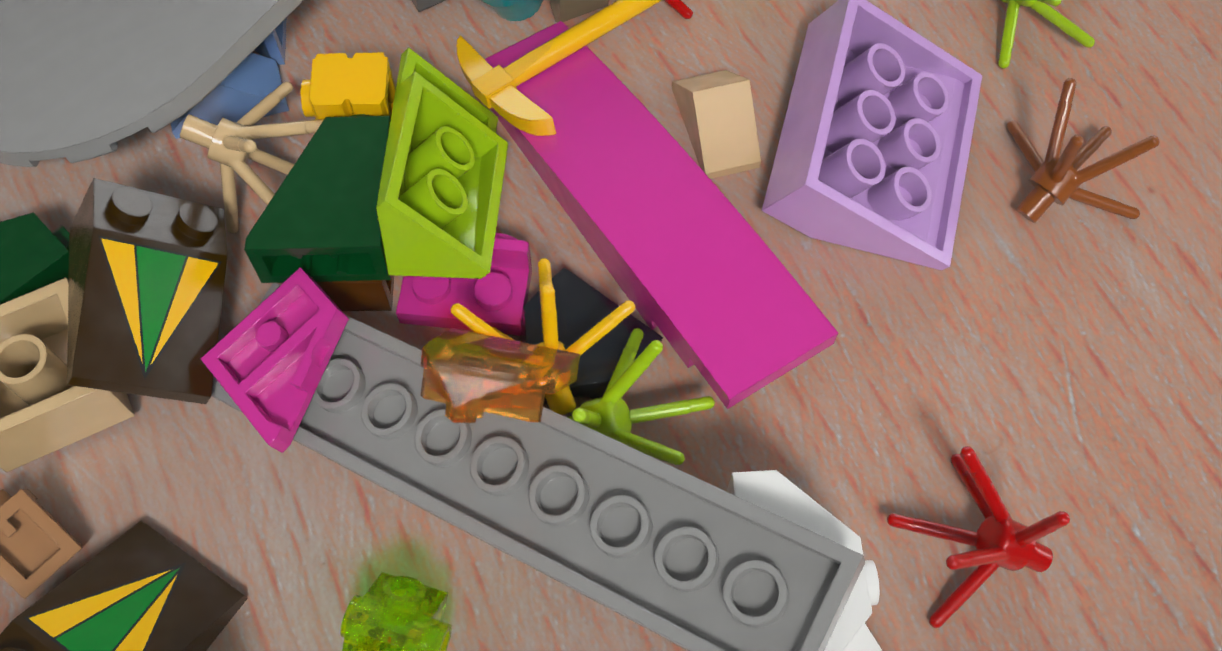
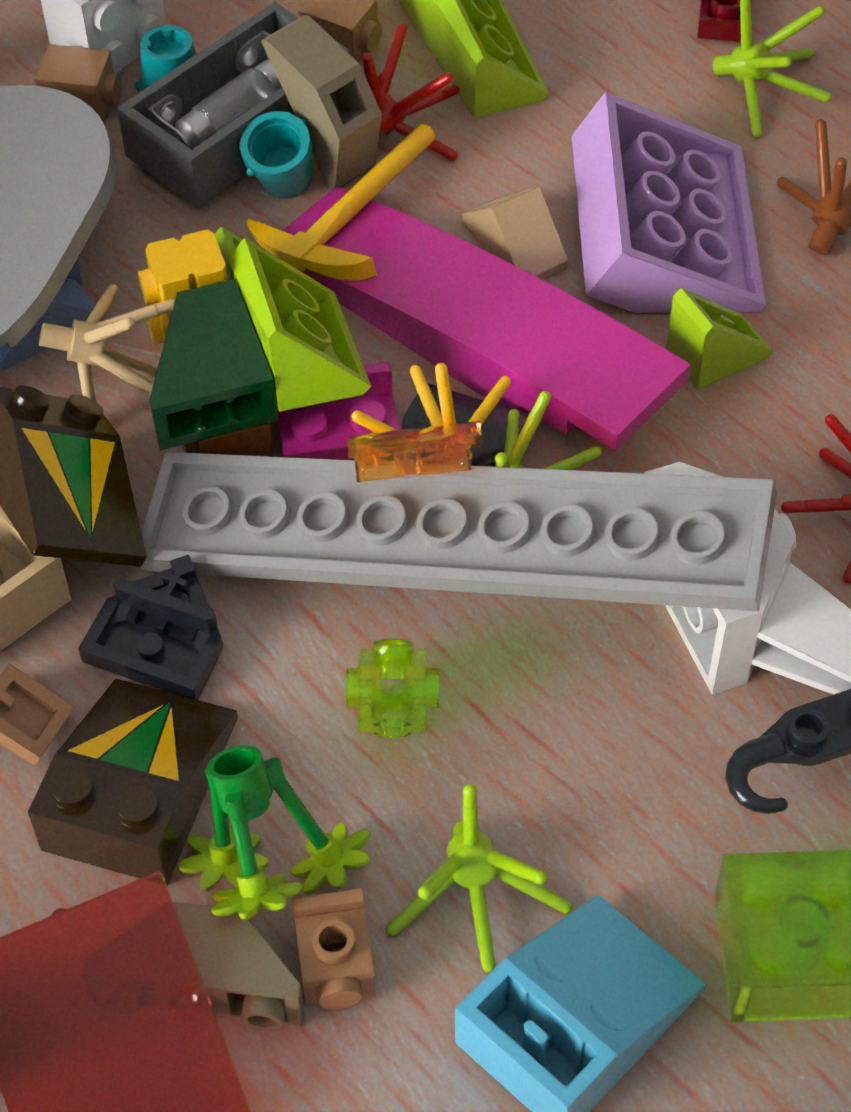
camera: 15 degrees left, 10 degrees down
(198, 482) = (157, 632): none -> black slope
(279, 357) = (205, 498): dark pink wing -> none
(879, 295) = (712, 338): none -> lime slope

